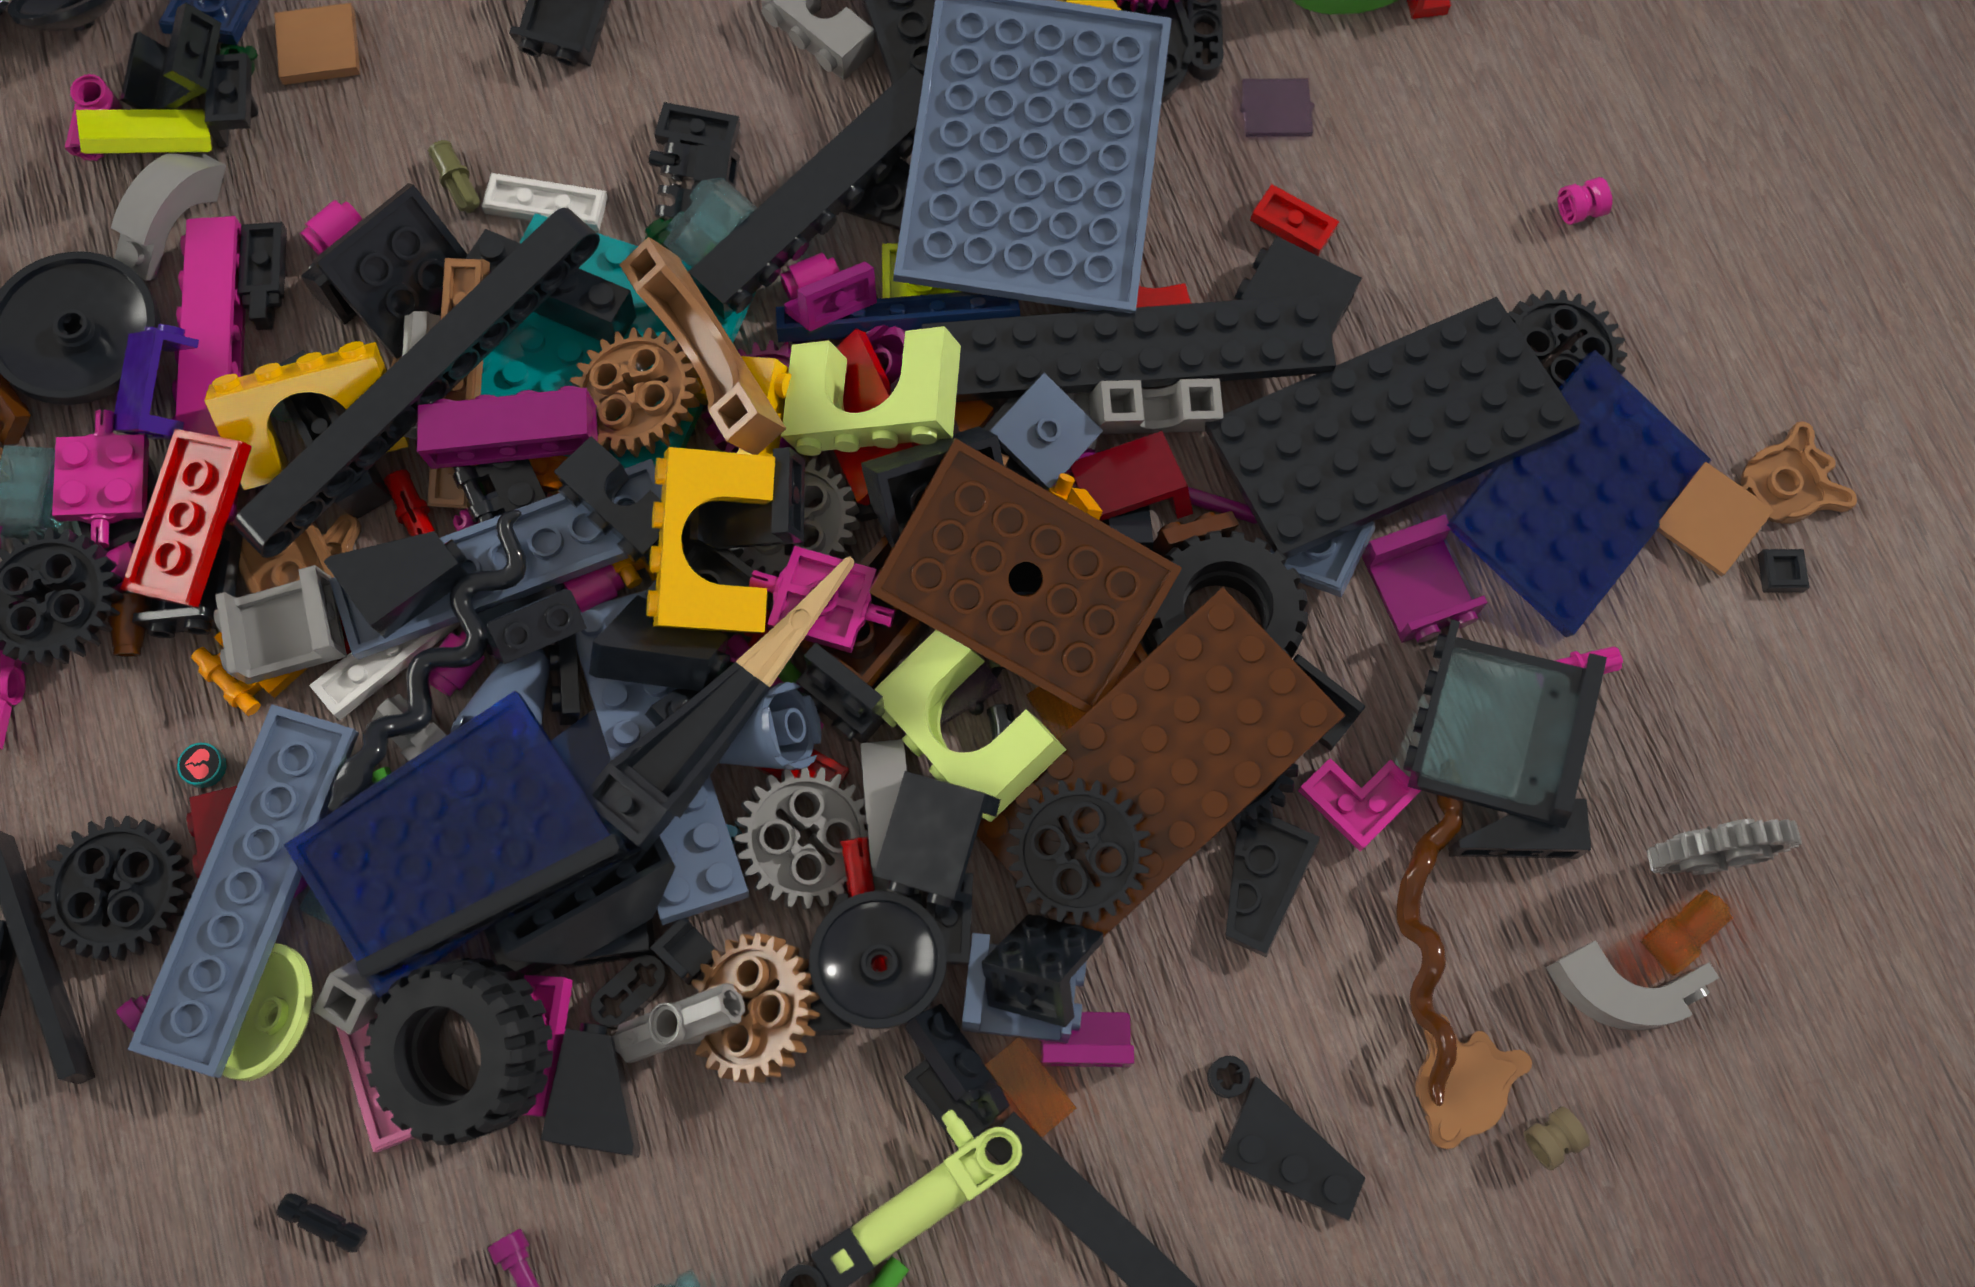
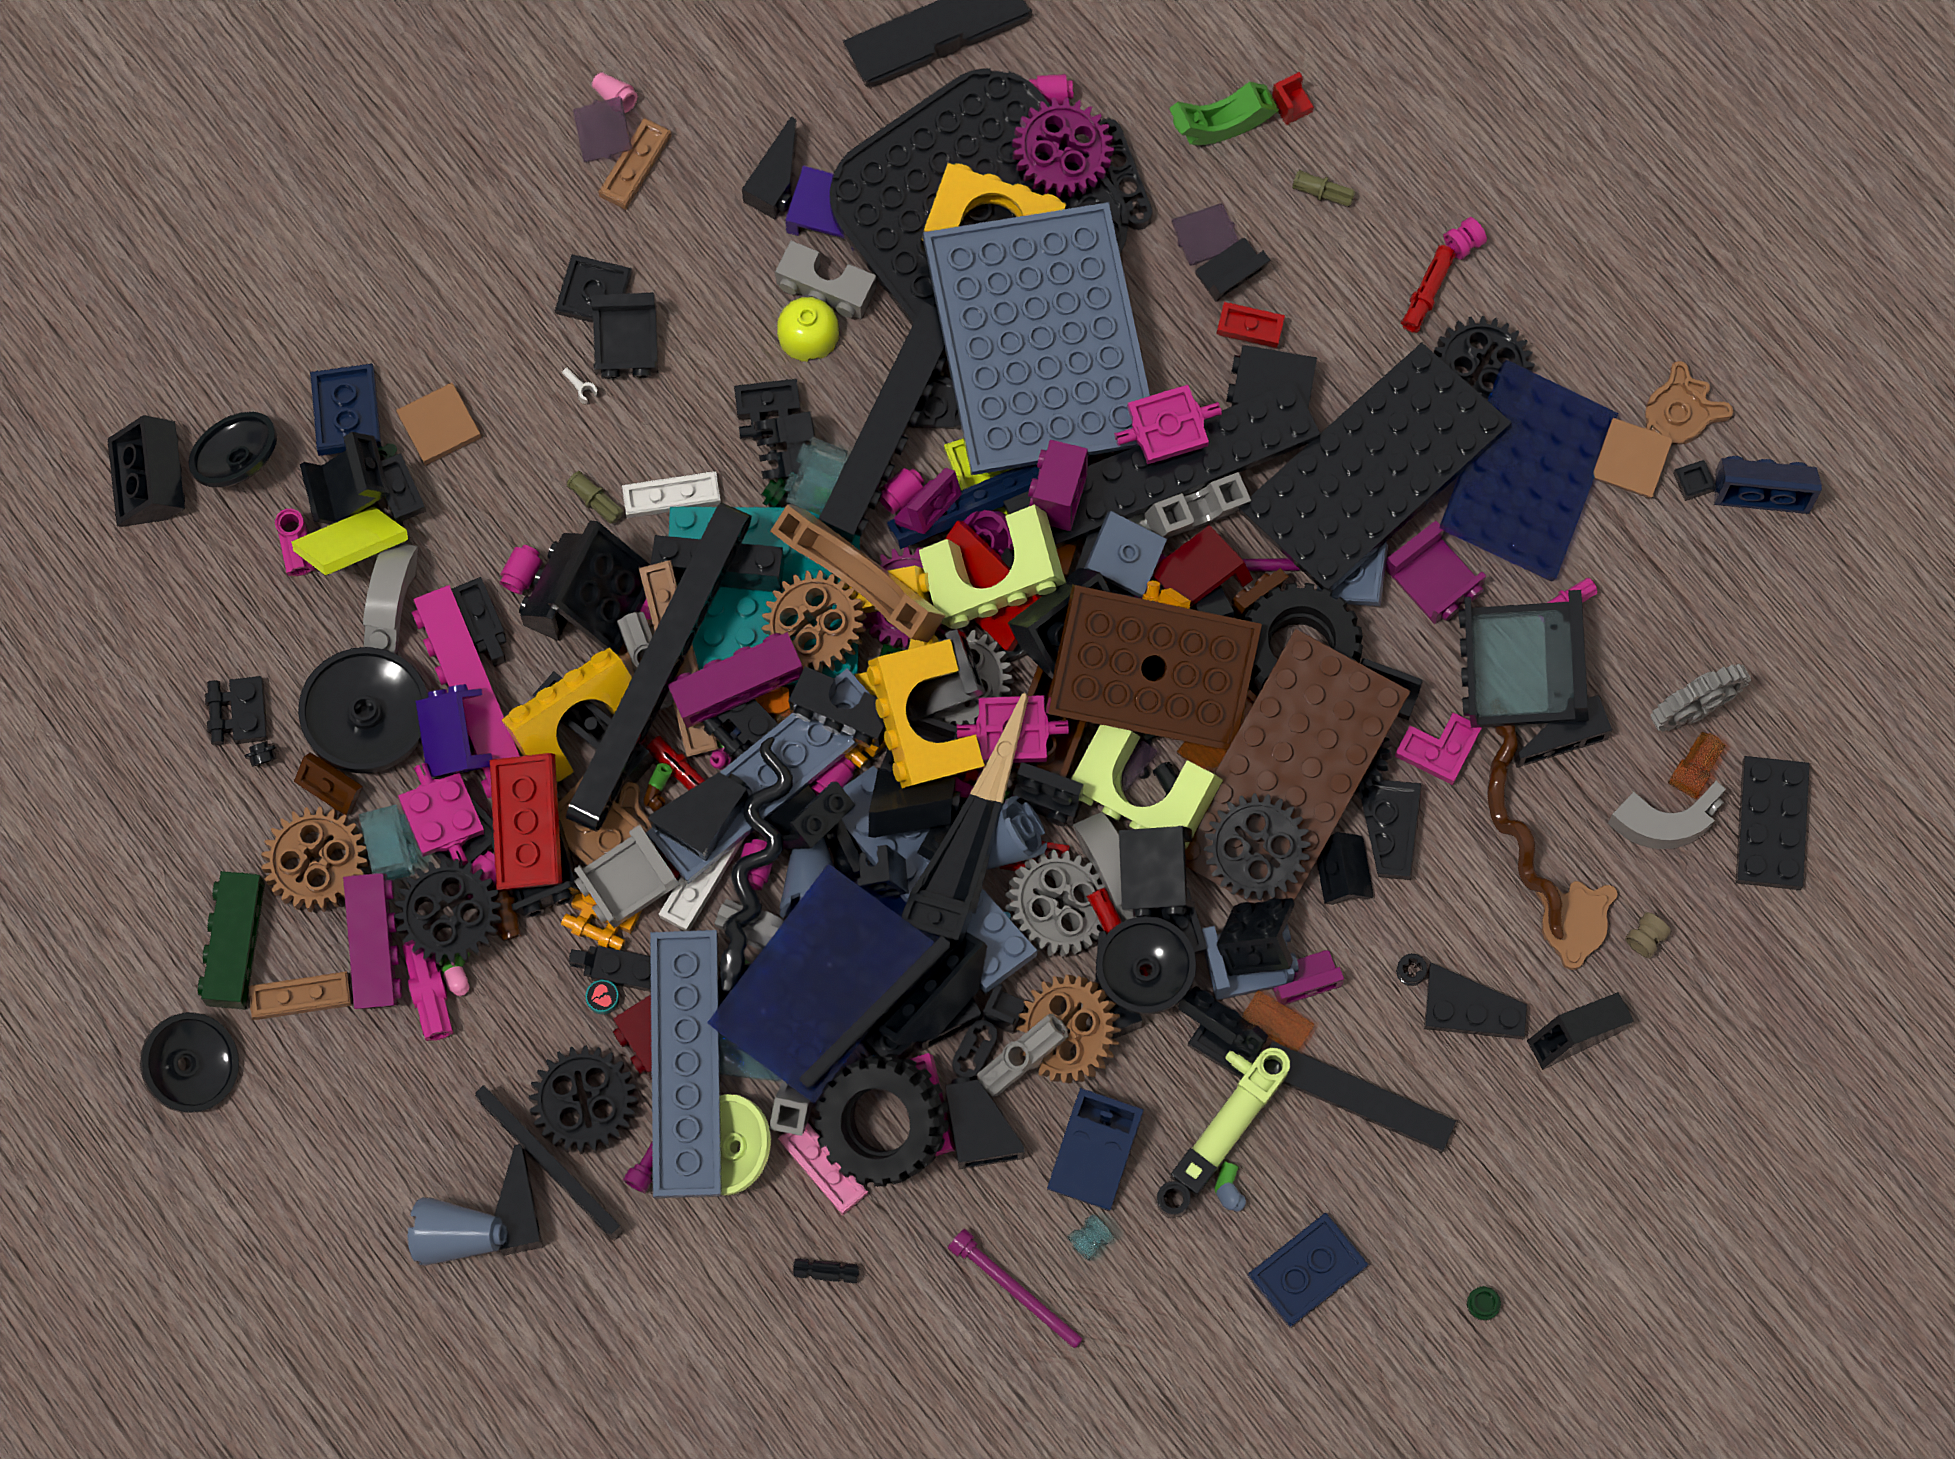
camera: 15 degrees left, 0 degrees up
(35, 682) = (455, 977): none -> bright pink arm
(222, 726) = (614, 965): none -> black hinge
(379, 527) = (655, 787): none -> arm
(493, 52) = (579, 385): none -> white hand
(590, 729) = (887, 876): none -> black hinge
(727, 1182) = (1095, 1149): none -> dark blue slope
(776, 68) = (807, 329): none -> neon yellow cylinder
(991, 316) = (1060, 482): none -> magenta brick
(1151, 292) = (1168, 424): none -> dark pink plate
(1185, 915) = (1344, 869): none -> black panel
(1294, 152) = (1231, 268): none -> black panel
(1427, 1240) = (1580, 1030): none -> black slope
(1432, 96) = (1323, 188): none -> olive axle
(1512, 254) = (1423, 298): none -> red pin
(1764, 1041) = (1772, 823): none -> black plate
(1878, 605) = (1766, 485): none -> dark blue slope

